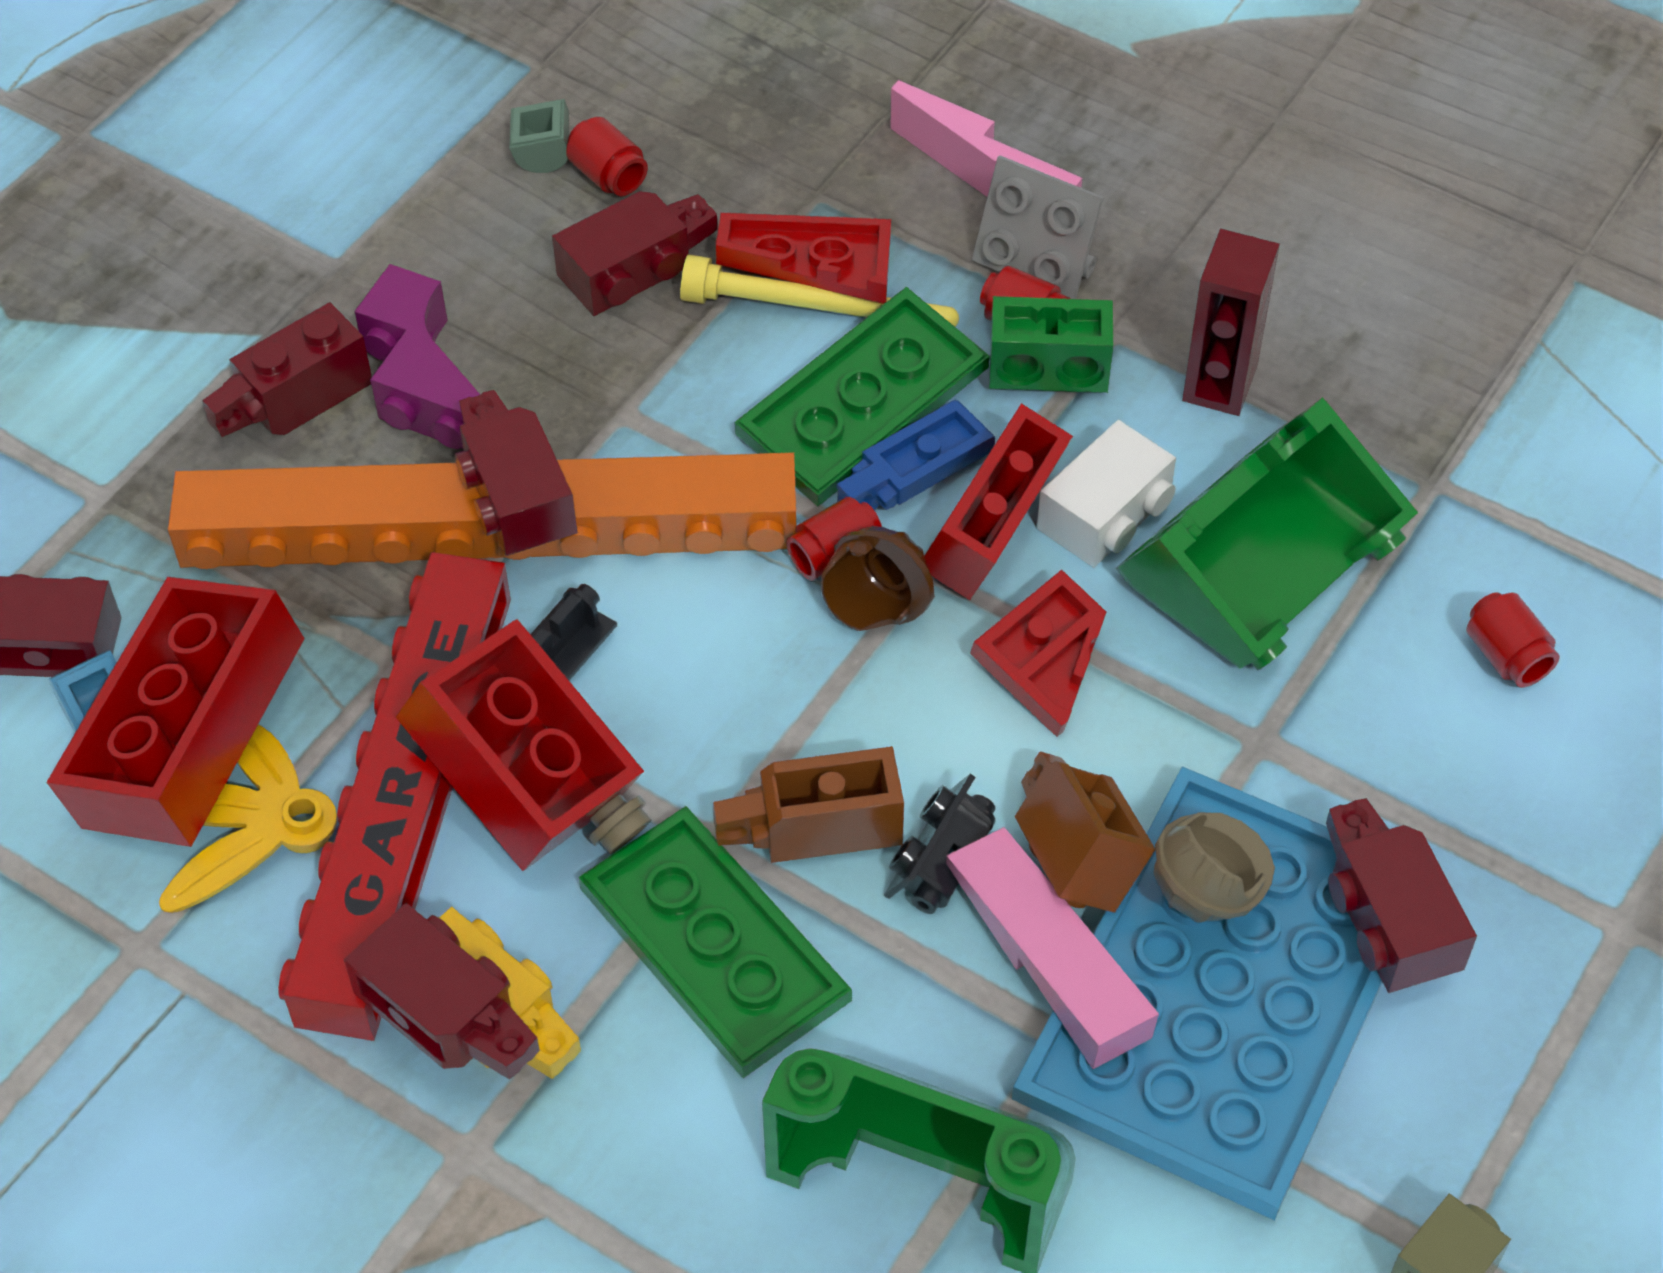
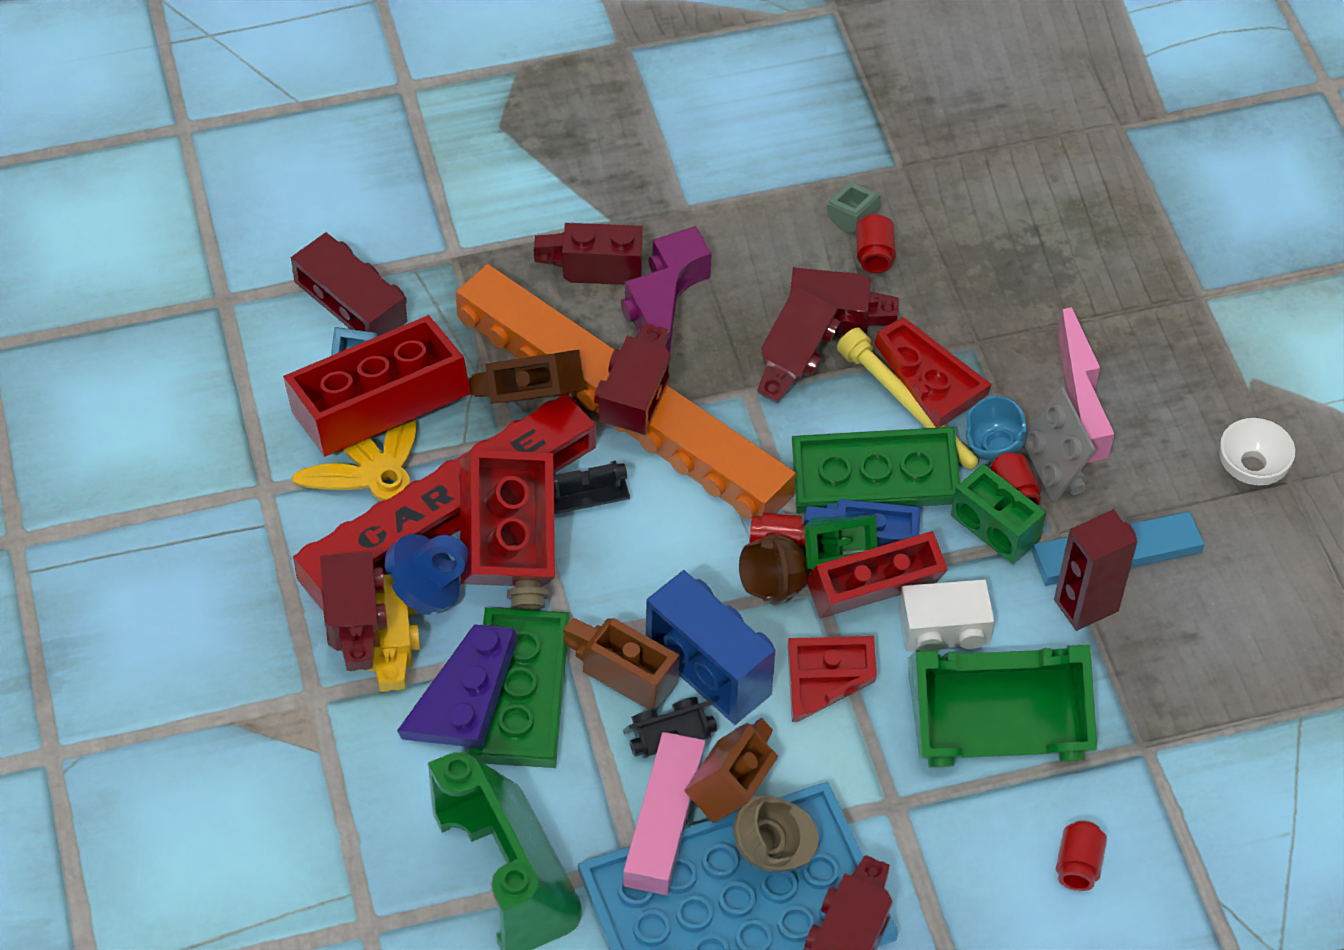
camera: 40 degrees right, 0 degrees up
(370, 564) = (529, 377): none -> reddish brown hinge
(480, 885) = (425, 573): none -> blue tile
(639, 313) = (794, 342): none -> dark red hinge
(663, 995) = (464, 692): none -> dark purple wing
(918, 491) = (838, 537): none -> green slope
(930, 703) = (715, 646): none -> blue brick
(948, 259) = (995, 427): none -> dark azure hair
(1163, 333) = (1157, 541): none -> dark azure tile
(1229, 93) = (1260, 440): none -> white piece

